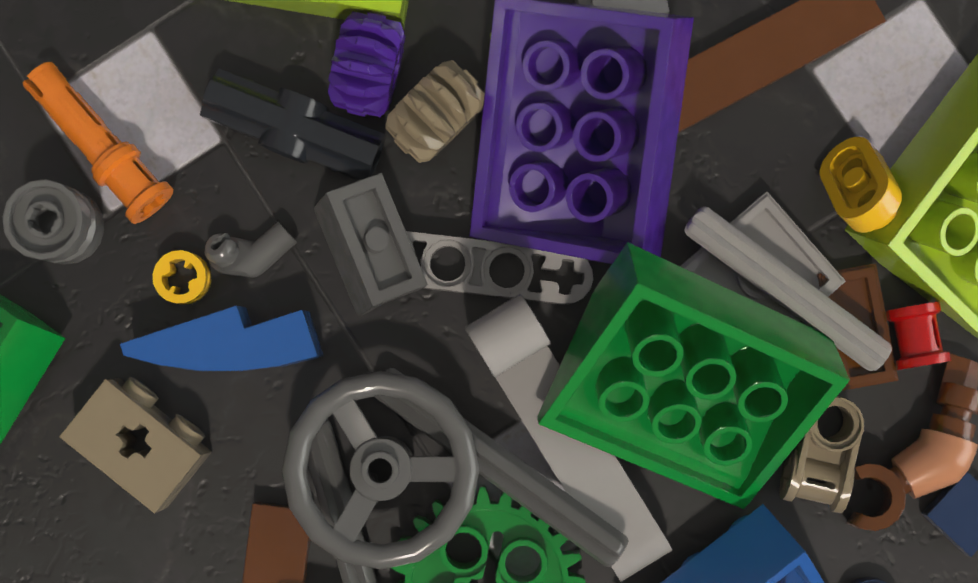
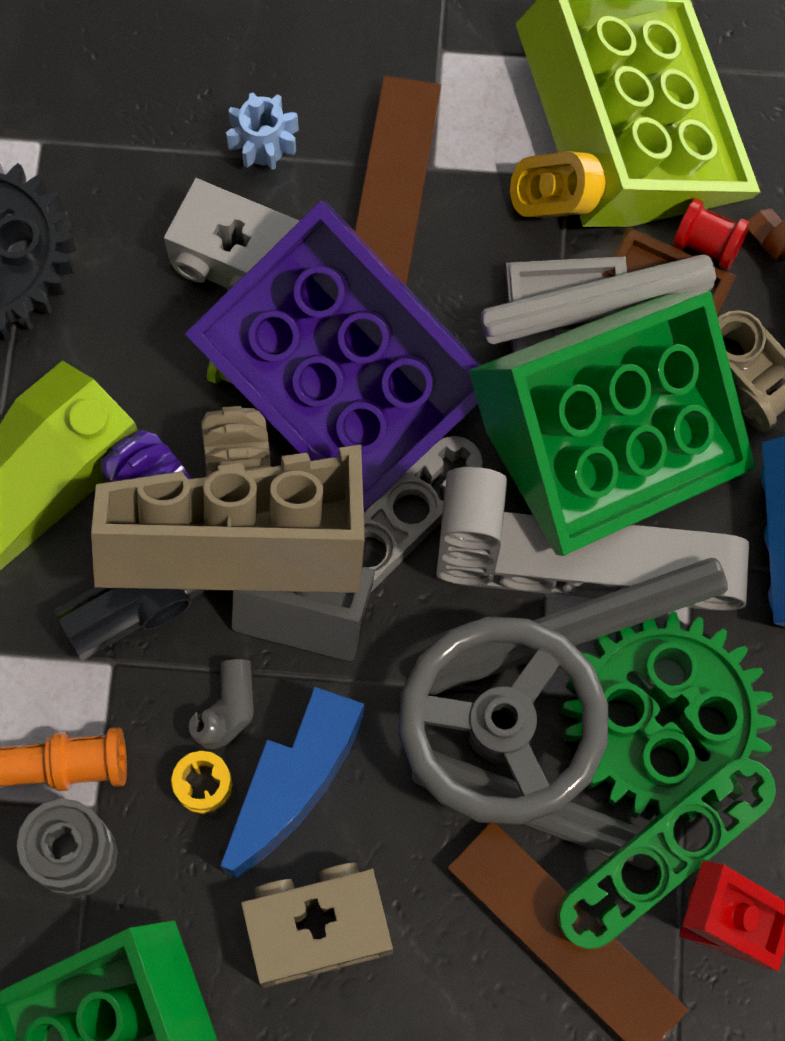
camera: 55 degrees left, 15 degrees down
(365, 161) = (235, 529): none -> dark tan wedge

